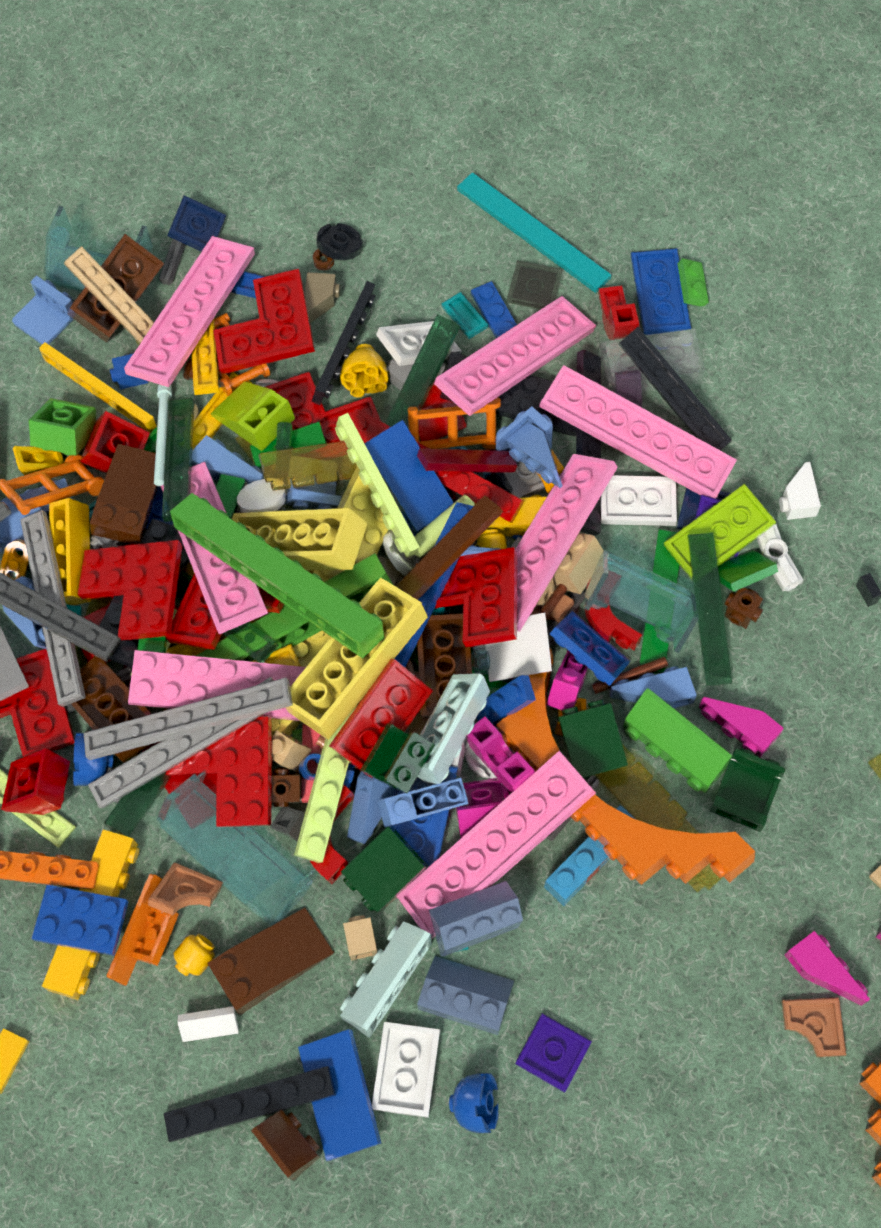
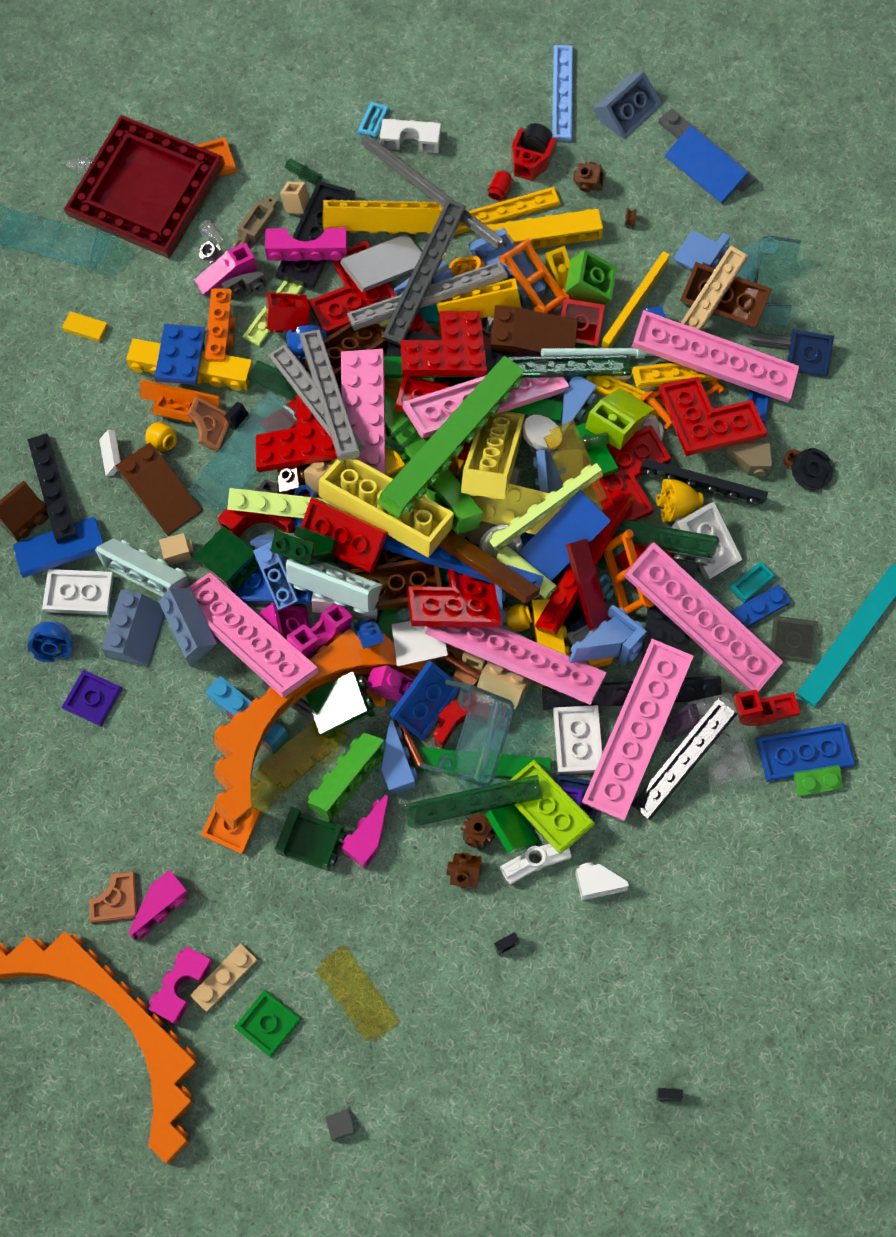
camera: 85 degrees right, 0 degrees up
(178, 855) = (236, 415): none -> black tile
(729, 896) = (220, 832): none -> orange plate
(789, 623) = (464, 870): none -> reddish brown brick

